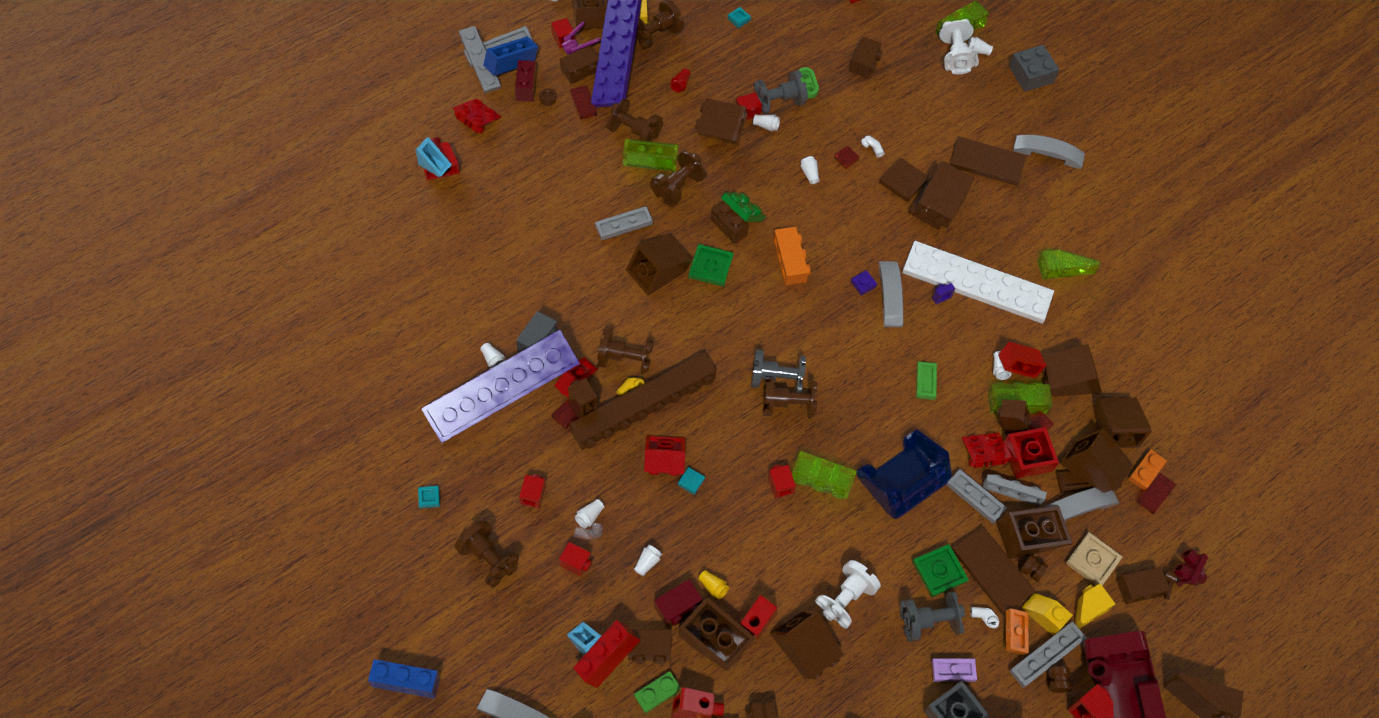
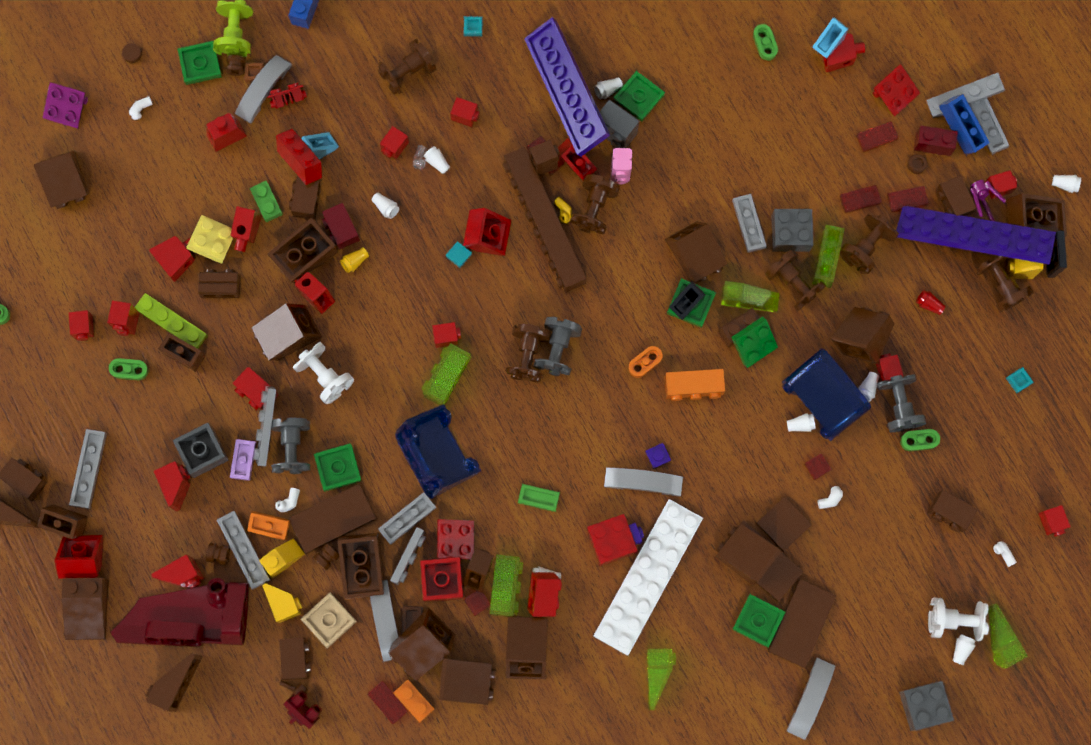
camera: 100 degrees right, 15 degrees up
(433, 222) = (765, 43): none -> bright green plate
(500, 327) = (639, 96): none -> green plate
(523, 128) = (877, 136): none -> clear red tile
(527, 684) = (277, 101): none -> red hinge
(581, 331) = (621, 165): none -> bright pink brick
(587, 138) = (860, 199): none -> clear red tile
(627, 186) = (792, 230): none -> dark grey brick
(698, 220) = (749, 297): none -> clear neon green slope
(712, 261) = (687, 301): none -> black slope
(777, 299) = (645, 362): none -> orange plate
(780, 149) = (827, 394): none -> clear blue windscreen
(875, 668) = (251, 386): none -> red brick
(890, 22) = (1003, 549): none -> white arm
(917, 644) = (263, 433): none -> light grey plate
(954, 311) = (611, 539): none -> red brick
(995, 192) = (758, 620): none -> green plate

